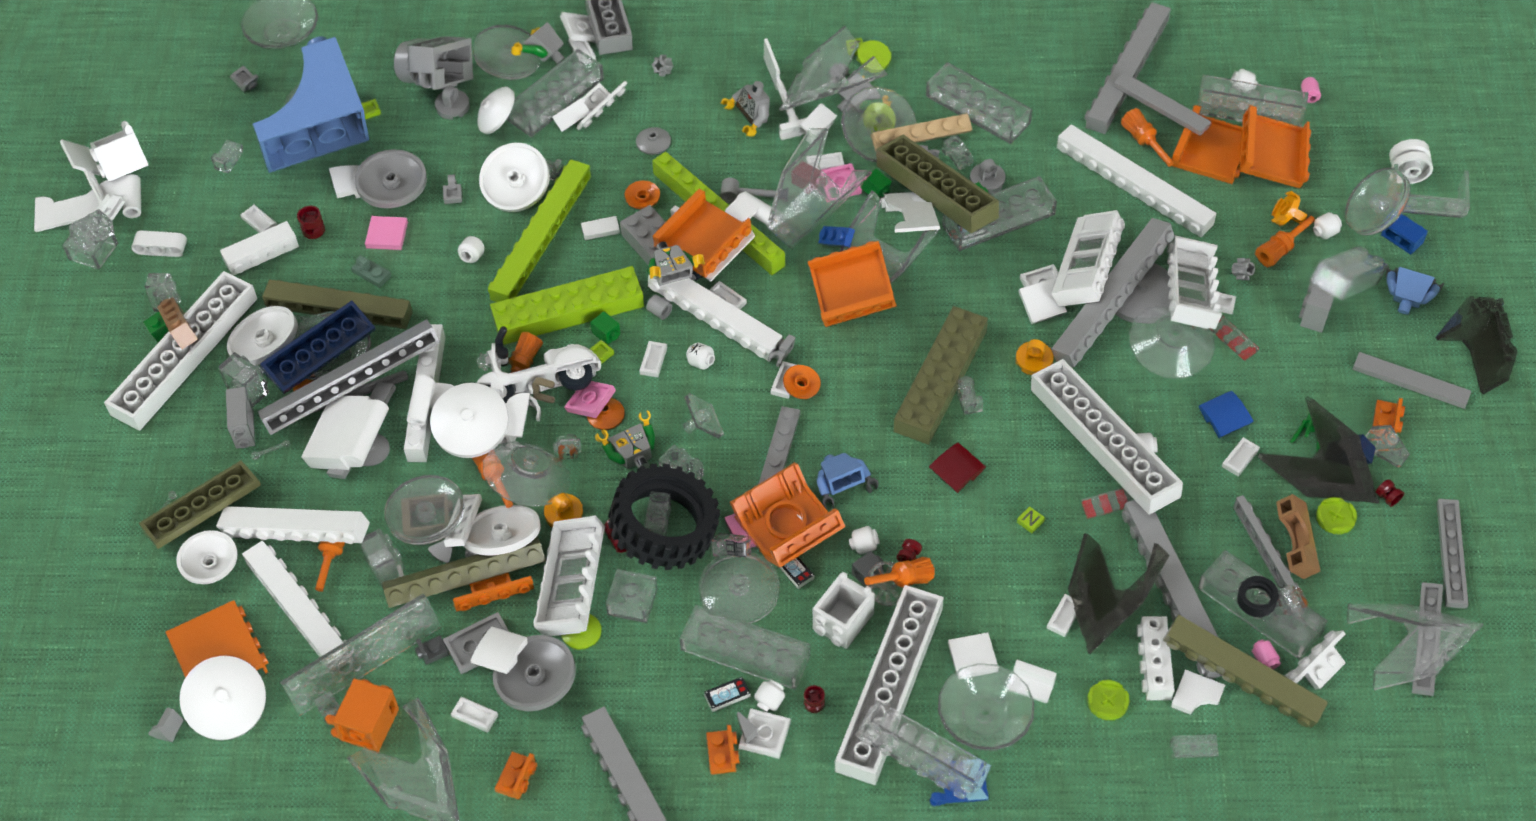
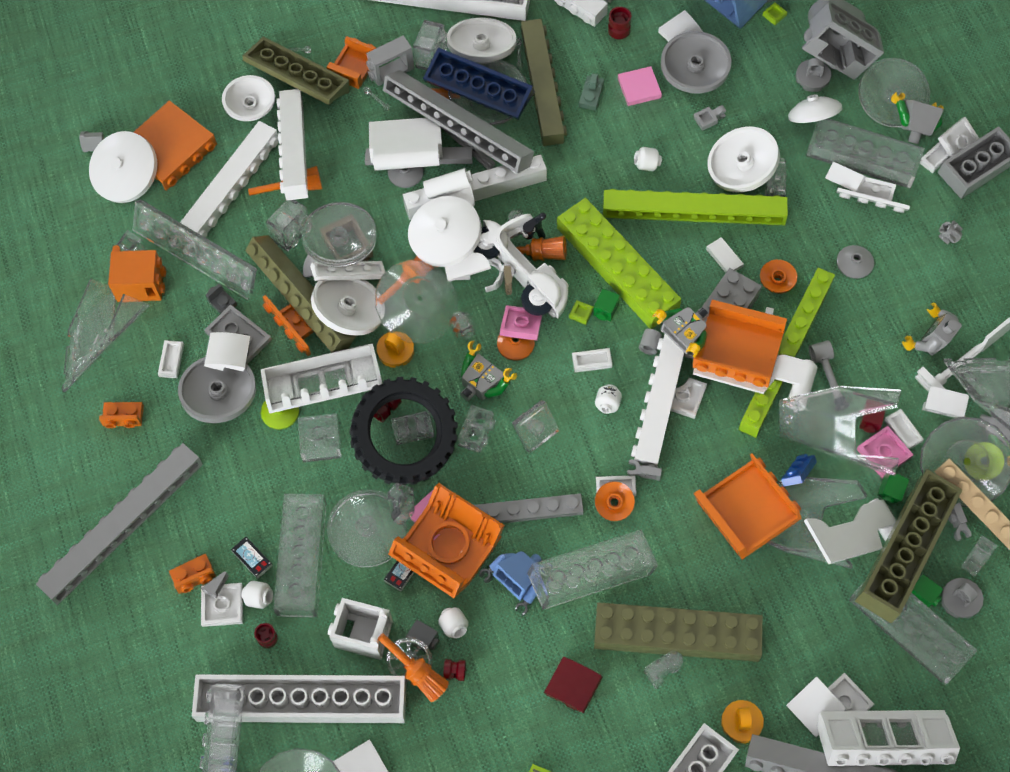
camera: 70 degrees right, 10 degrees up
(214, 453) = (352, 62): none -> orange panel
(862, 413) = (592, 569): none -> clear brick

